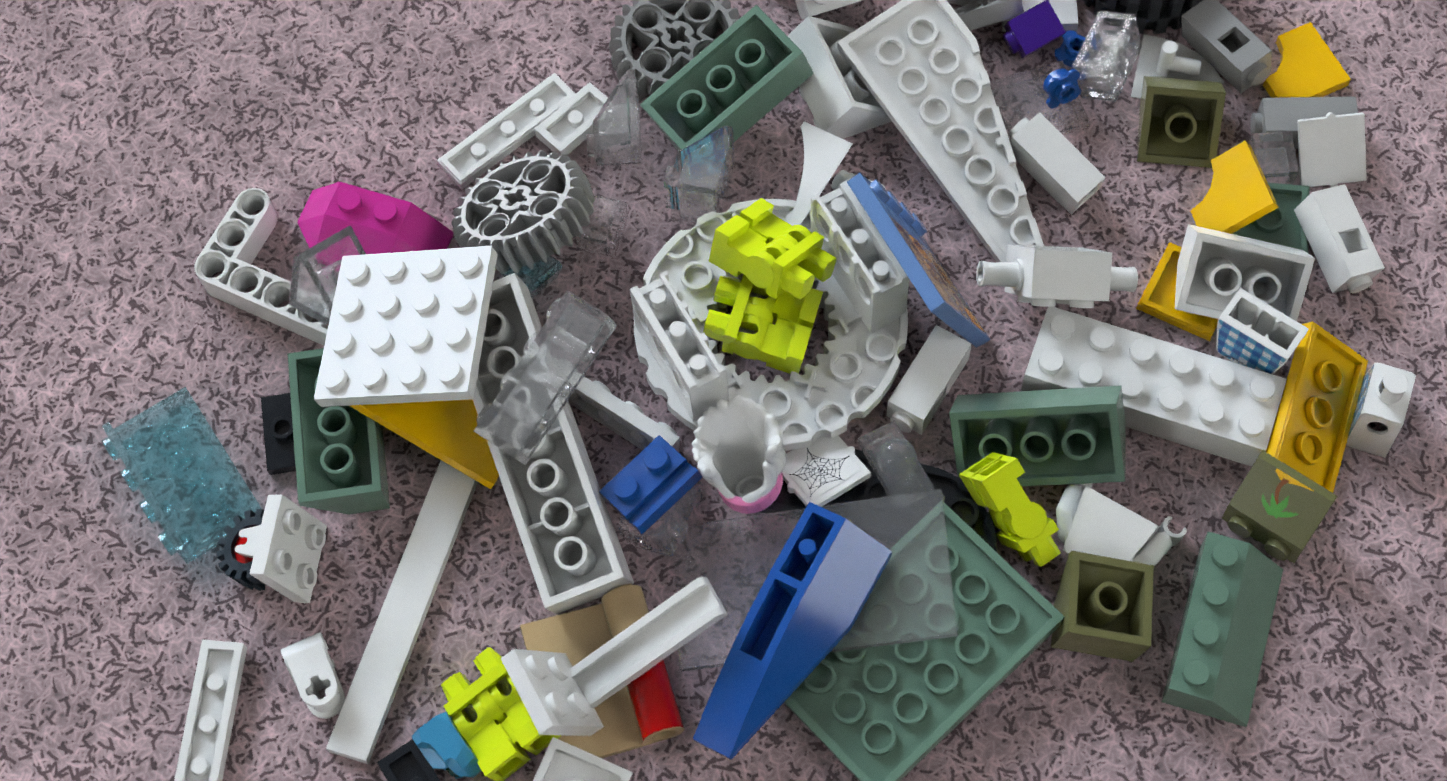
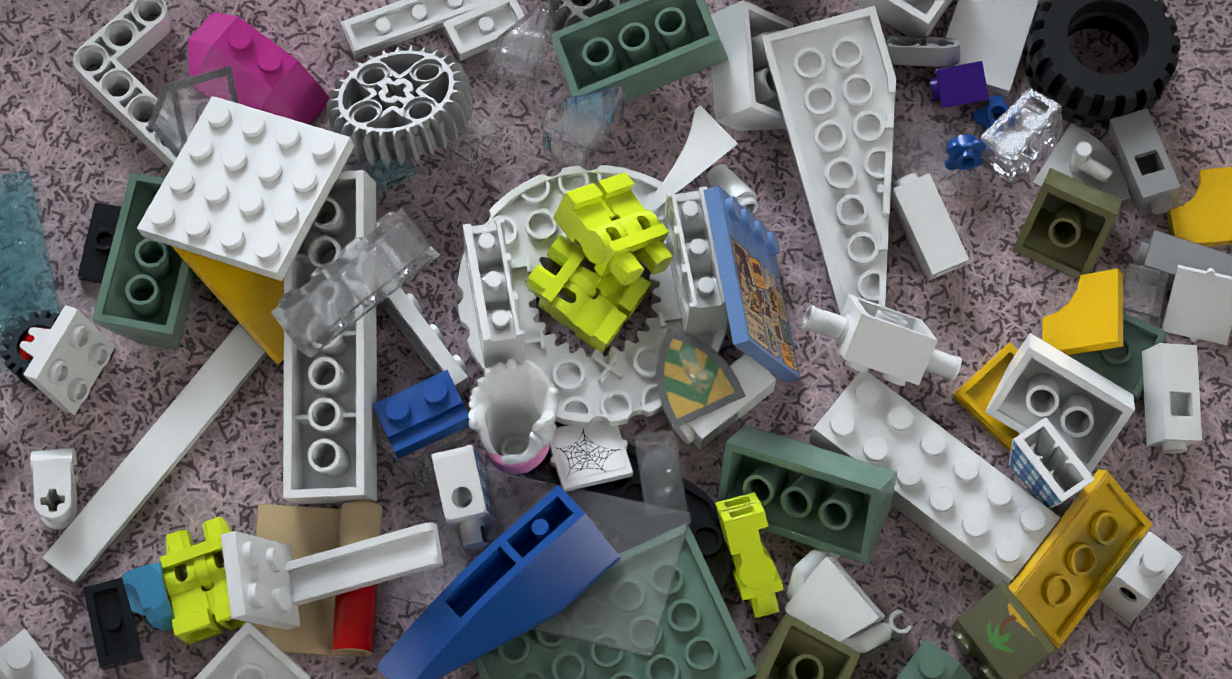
camera: 10 degrees right, 5 degrees up
(715, 535) = (461, 479): none -> white torso
(894, 367) = (693, 379): none -> clear shield

